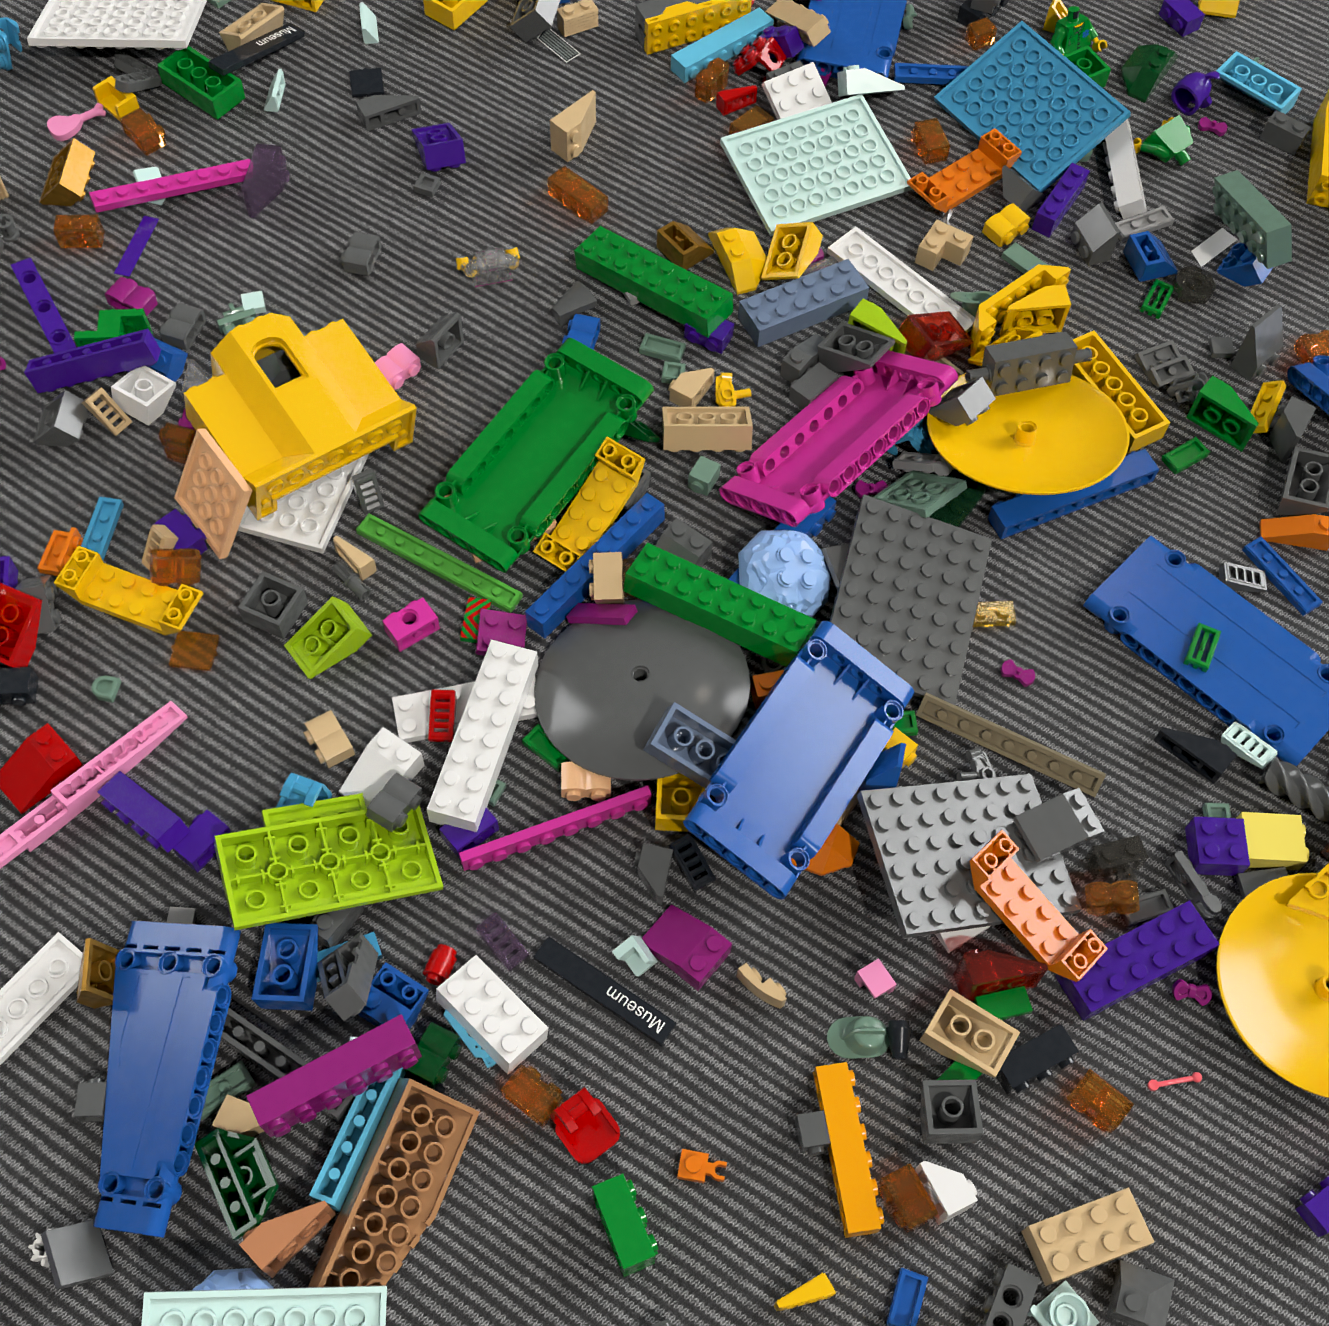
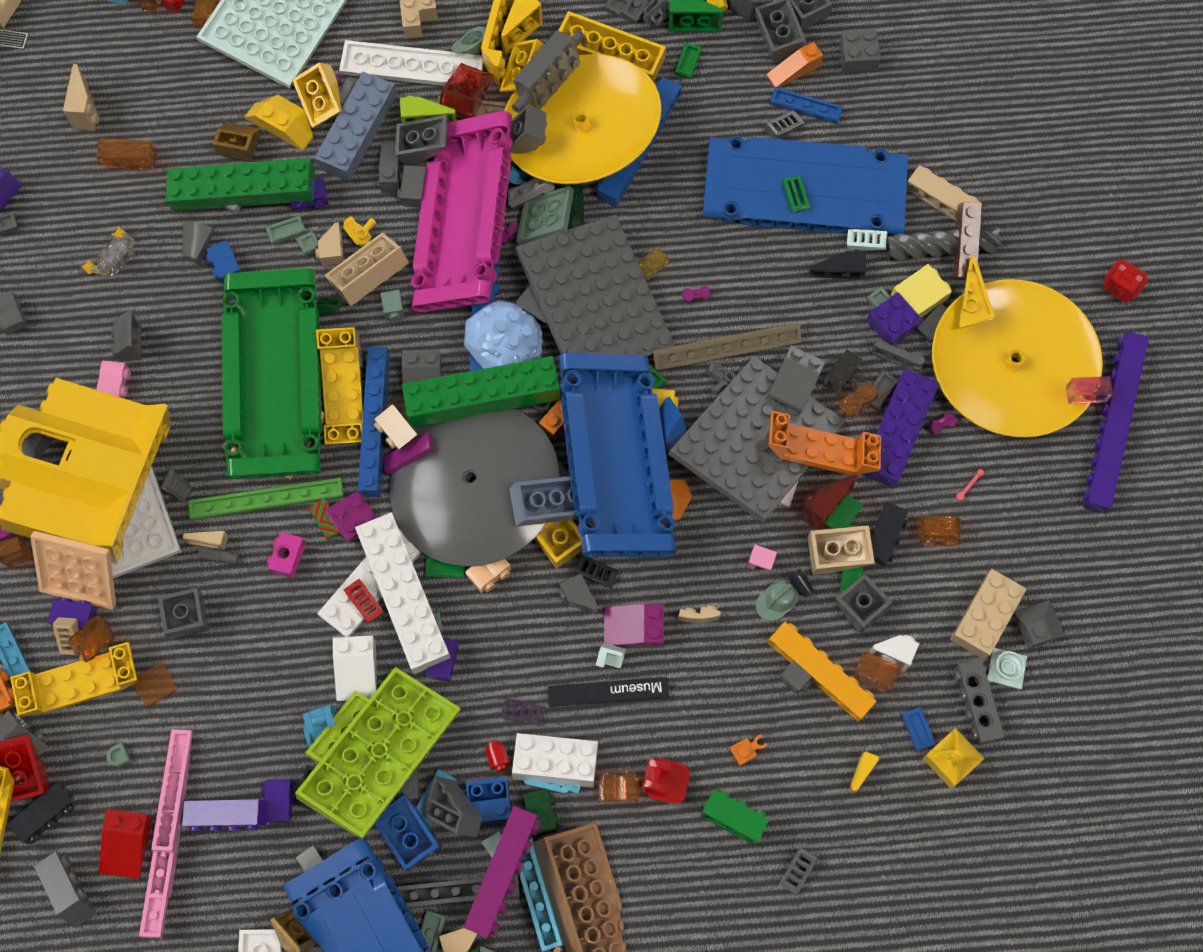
camera: 35 degrees left, 10 degrees up
(327, 637) = (239, 607): lime slope -> none
(329, 739) = (301, 672): tan brick -> none
(394, 802) = (384, 680): dark grey brick -> none
(548, 831) = (492, 623): dark pink plate -> none

